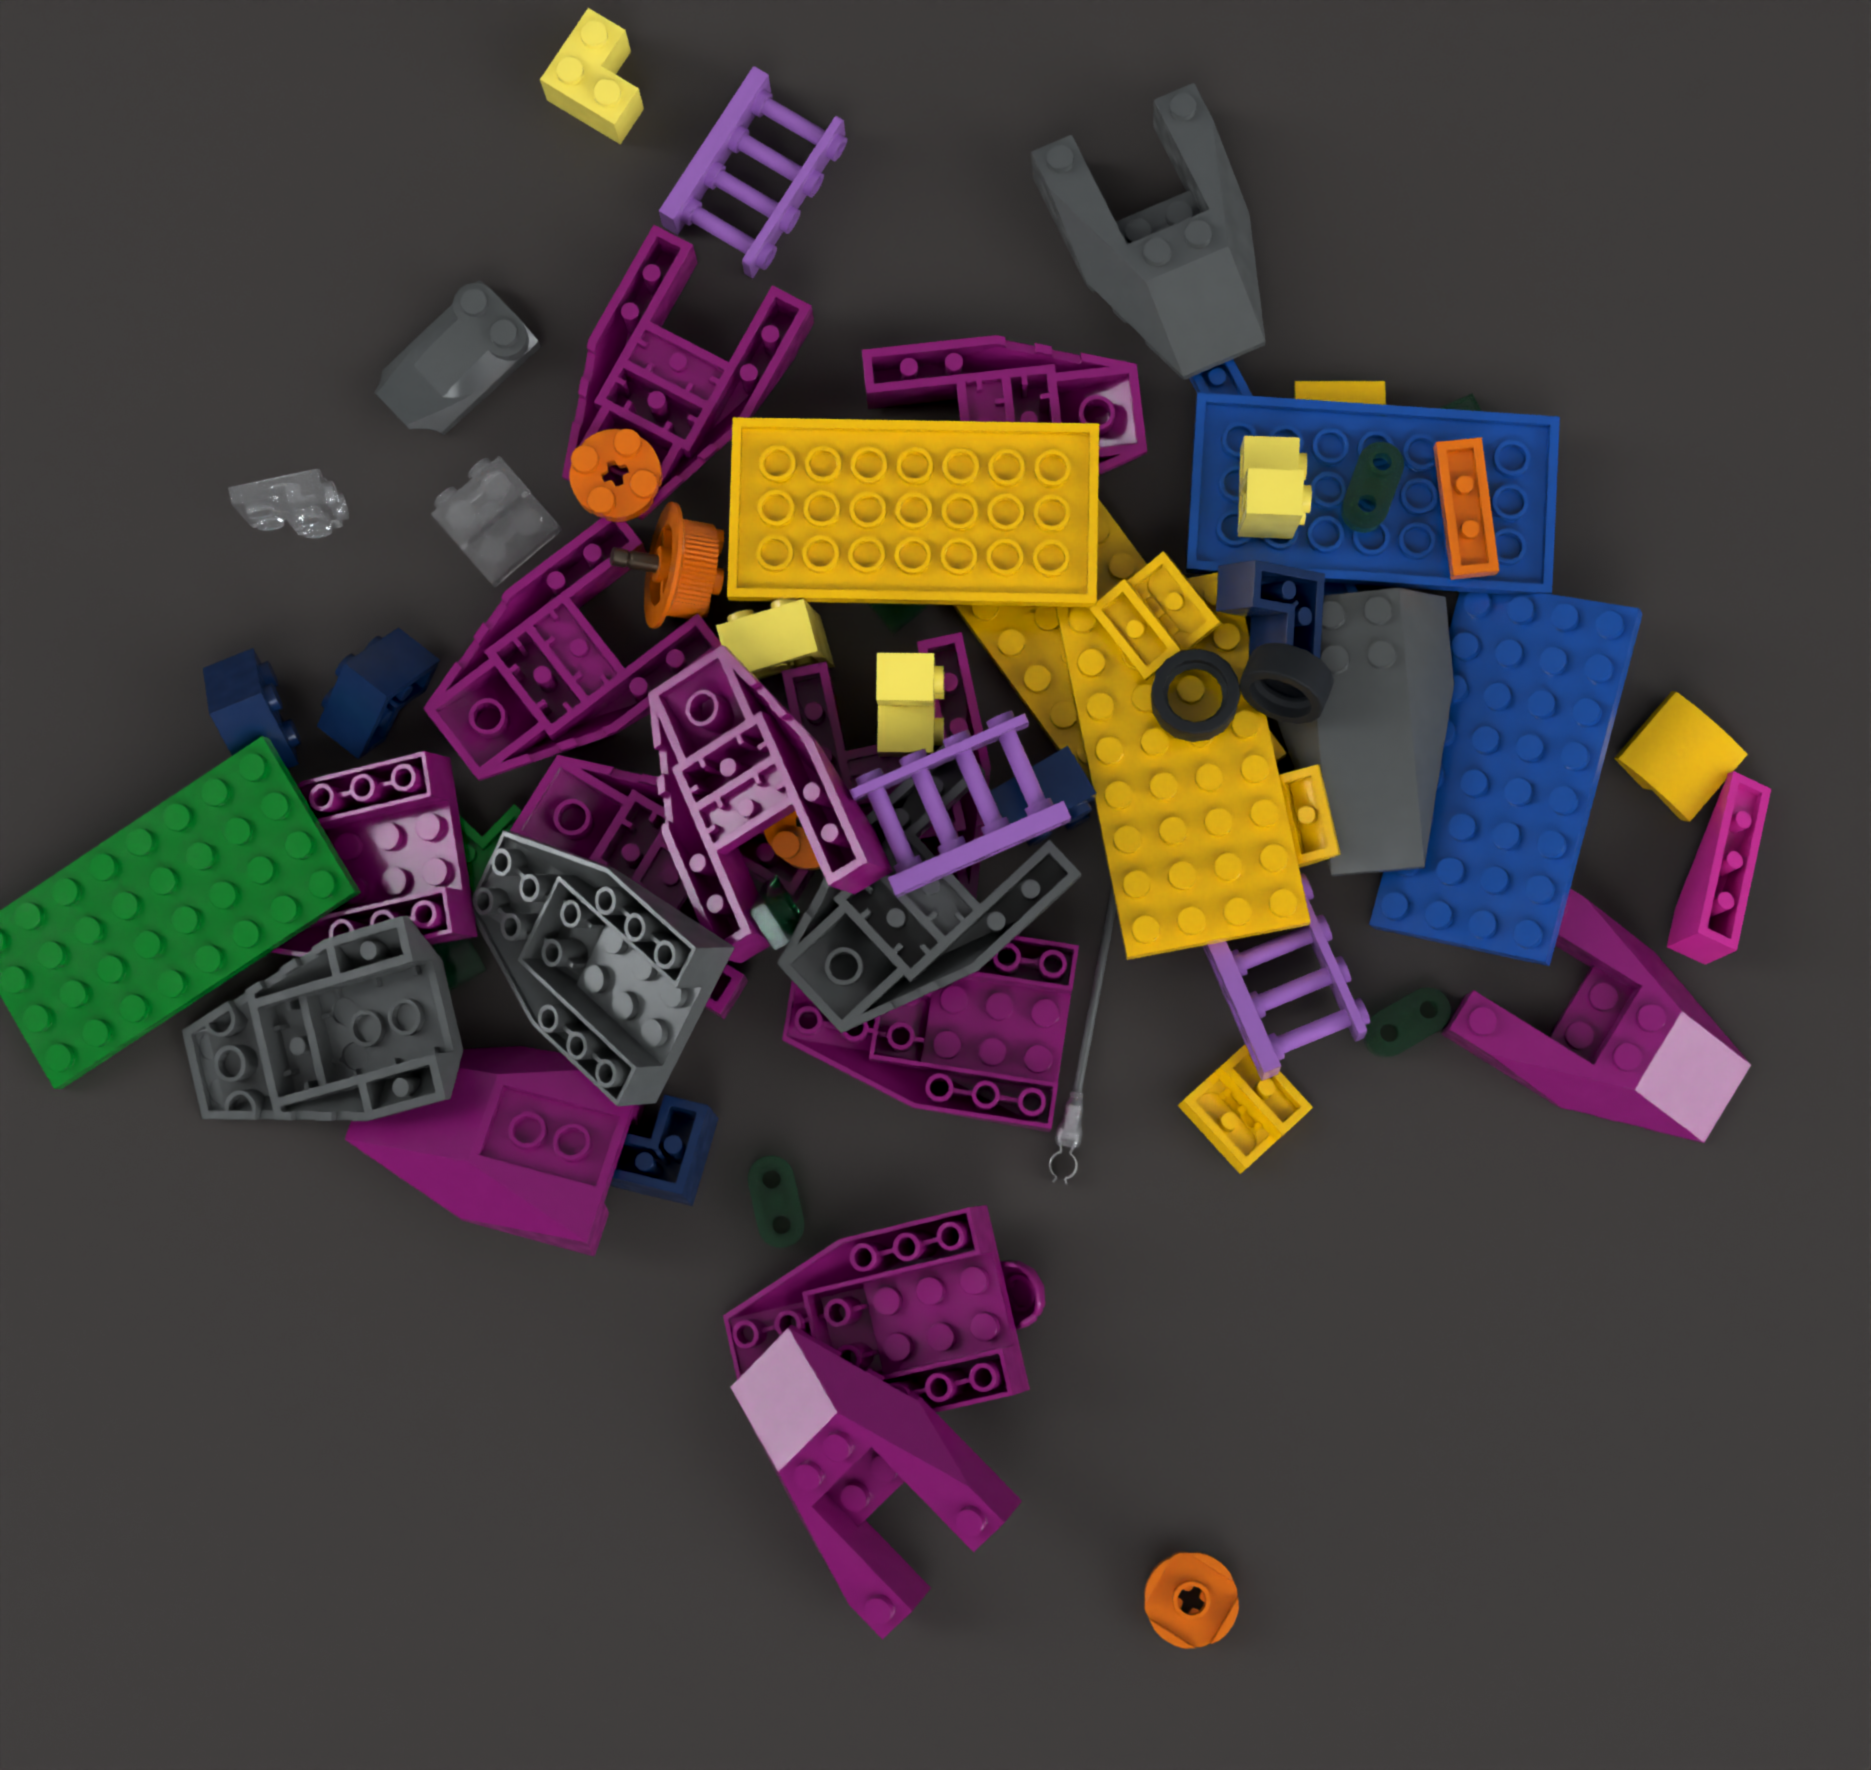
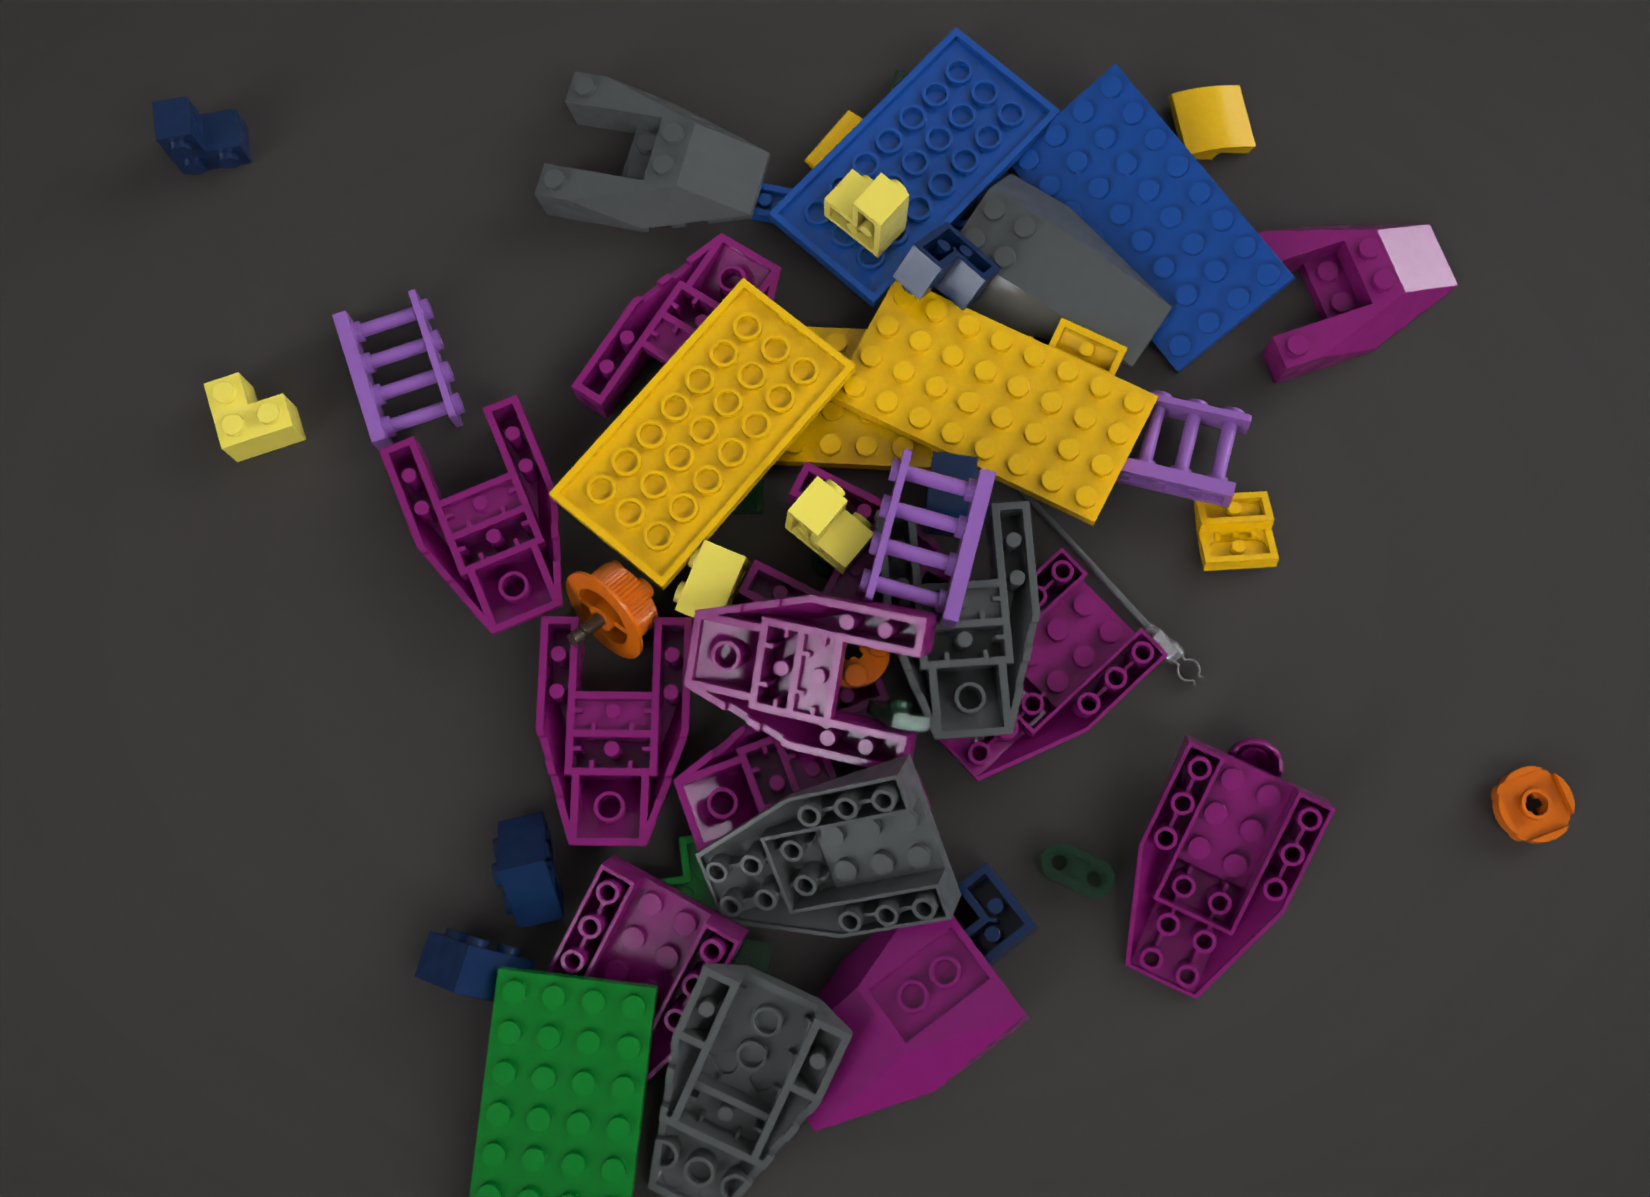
camera: 55 degrees left, 5 degrees down
(299, 498) = (359, 817): clear plate -> none
(456, 361) = (354, 647): dark grey slope -> none
(495, 520) = (479, 704): clear plate -> none
(627, 451) = (510, 579): orange plate -> none
(844, 1448) = (1280, 947): magenta wedge -> none
(1155, 615) = (890, 339): yellow slope -> none
(1203, 661) = (962, 326): black tyre -> none
(1293, 666) = (990, 280): black tyre -> none
(1374, 485) = (912, 155): clear green plate -> none
(1407, 1022) = (1256, 394): clear green plate -> none
(1466, 508) = (971, 115): orange plate -> none
(1719, 882) = (1310, 158): dark pink slope -> none

